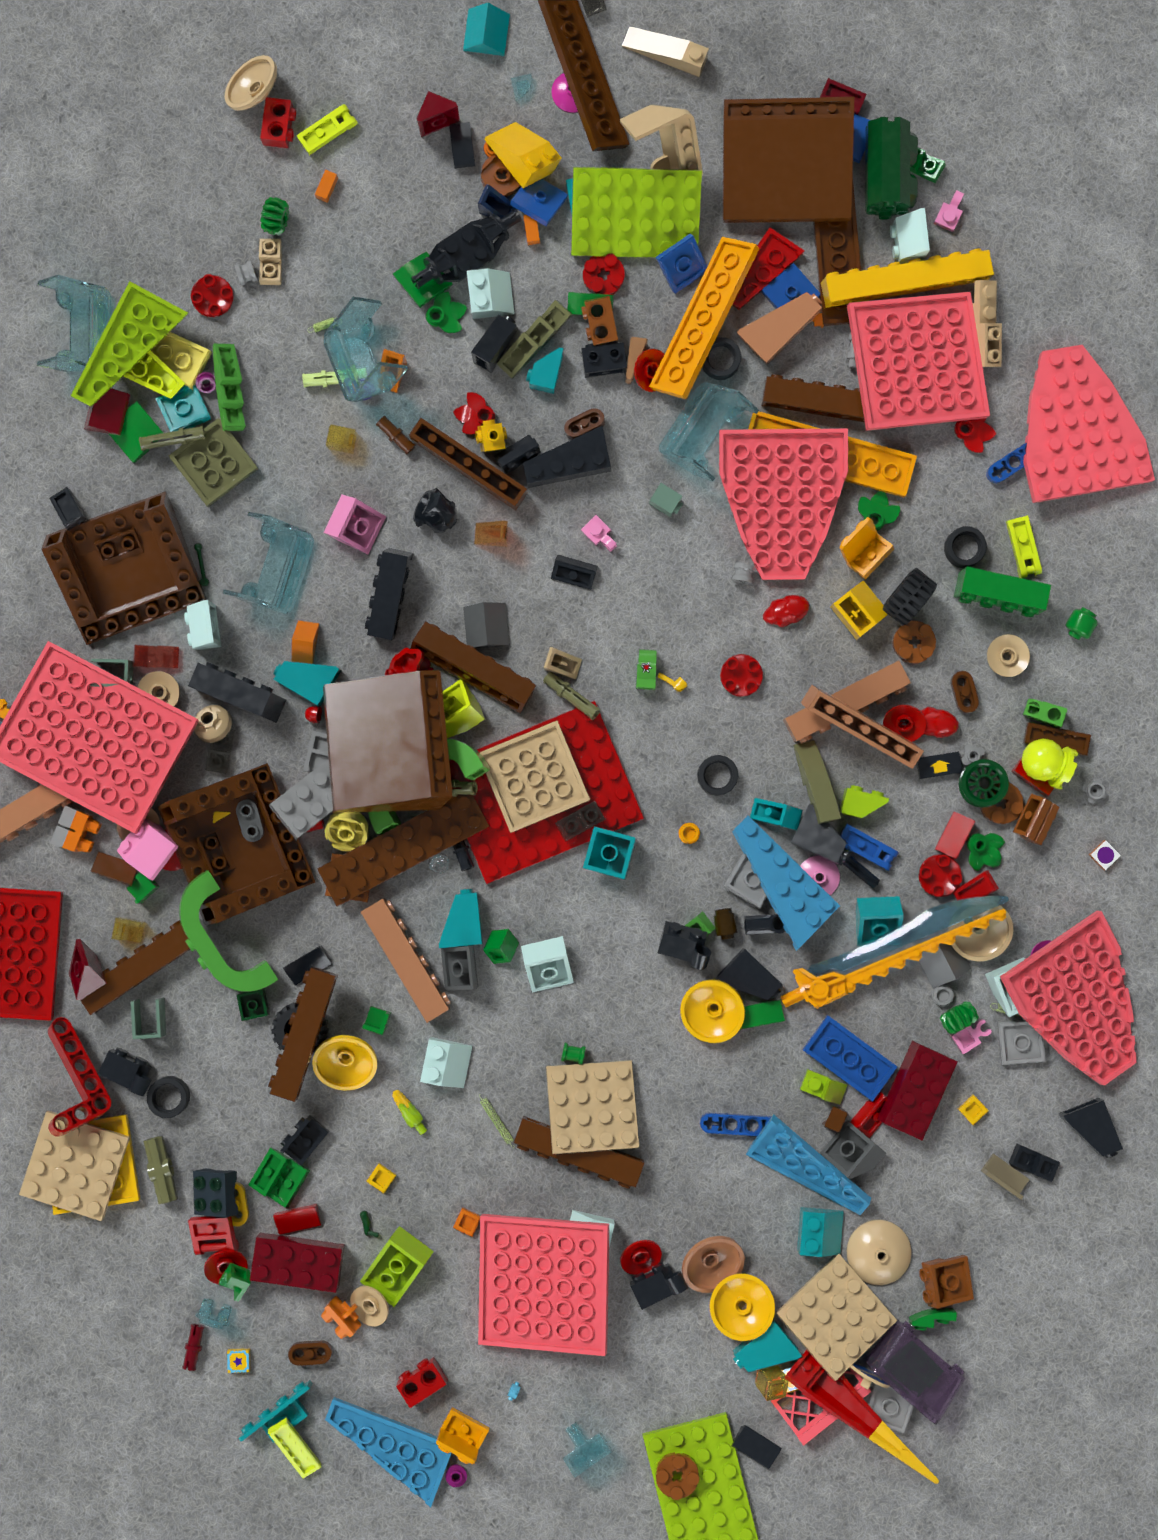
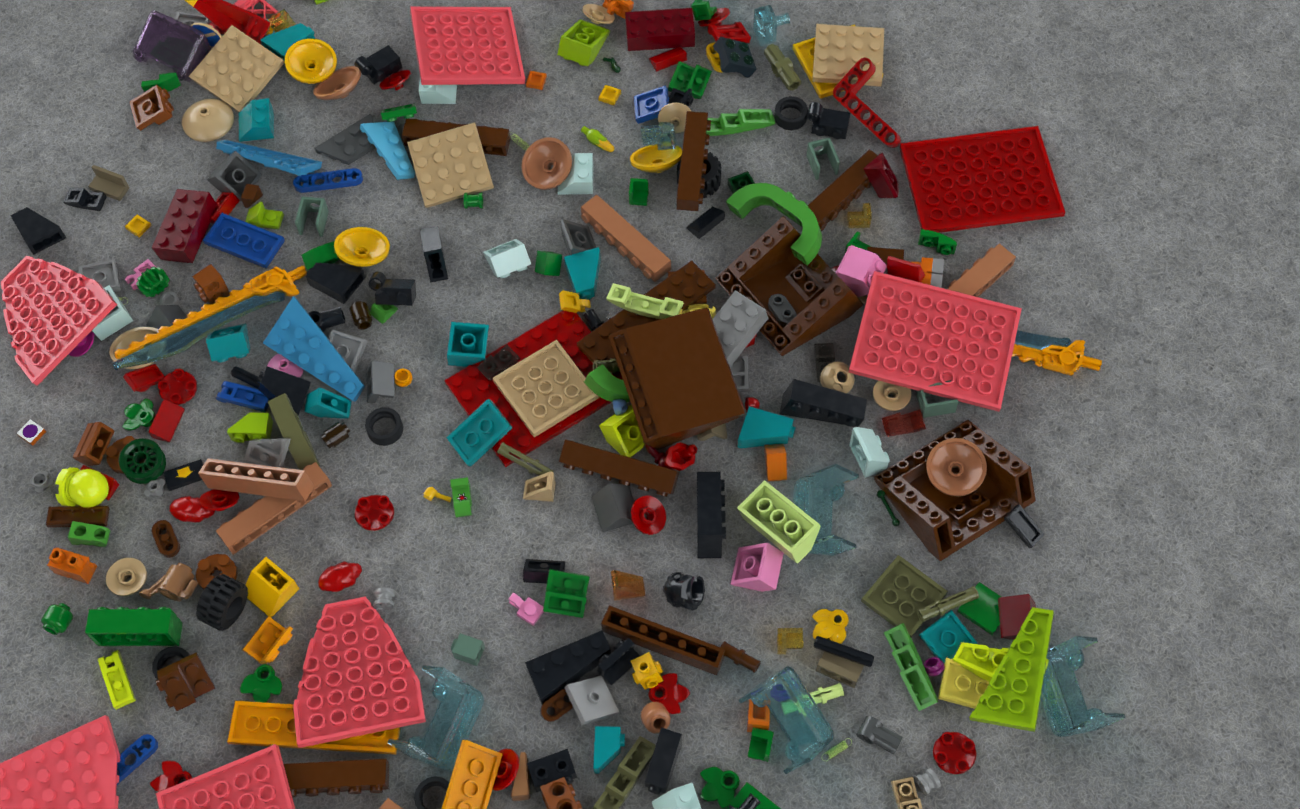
camera: 170 degrees right, 25 degrees down
(44, 870) = (943, 243): none -> green slope
(99, 835) = (904, 269): none -> red slope
(116, 570) = (961, 455): none -> nougat dish
(163, 1234) = (766, 24): none -> clear light blue brick
(233, 1099) = (740, 122): none -> bright green slope
(283, 330) = (875, 733): none -> dark grey piece
(290, 418) = (843, 651): none -> black axle
(299, 403) = (839, 669): none -> dark tan panel
(299, 446) = (827, 627): none -> yellow plate
(309, 1114) = (673, 112): none -> tan dish
(319, 559) = (780, 521): none -> yellowish green slope
(329, 1096) = (662, 135): none -> clear light blue brick
(333, 1145) = (650, 103): none -> blue plate
(396, 341) = (760, 744): none -> green panel
(402, 852) = (643, 305): none -> yellowish green slope
(453, 606) = (654, 512): none -> red dish
(457, 732) = (619, 406): none -> medium blue hinge
(484, 881) = (570, 302): none -> yellow plate
(489, 1078) = (541, 157): none -> nougat dish
(492, 388) = (655, 716): none -> nougat head
(551, 420) = (591, 700): none -> light grey plate
(556, 538) = (566, 593): none -> green slope
(615, 739) = (479, 432): none -> teal plate
(630, 988) = (434, 254): none -> black slope
(643, 1202) = (406, 111): none -> green plate
(662, 1161) = (389, 146): none -> medium azure wing
(706, 1177) = (348, 144): none -> dark grey wing
(714, 831) = (380, 380): none -> dark grey panel
(771, 776) = (335, 434): none -> dark brown brick
(777, 1076) = (305, 207): none -> sand green piece
(847, 767) = (268, 451): none -> light grey wing
(892, 994) = (210, 284): none -> dark orange brick
(956, 523) = (184, 681): none -> reddish brown plate
(958, 635) = (175, 584): none -> medium nougat piece
(1069, 681) = (71, 565): none -> orange hips

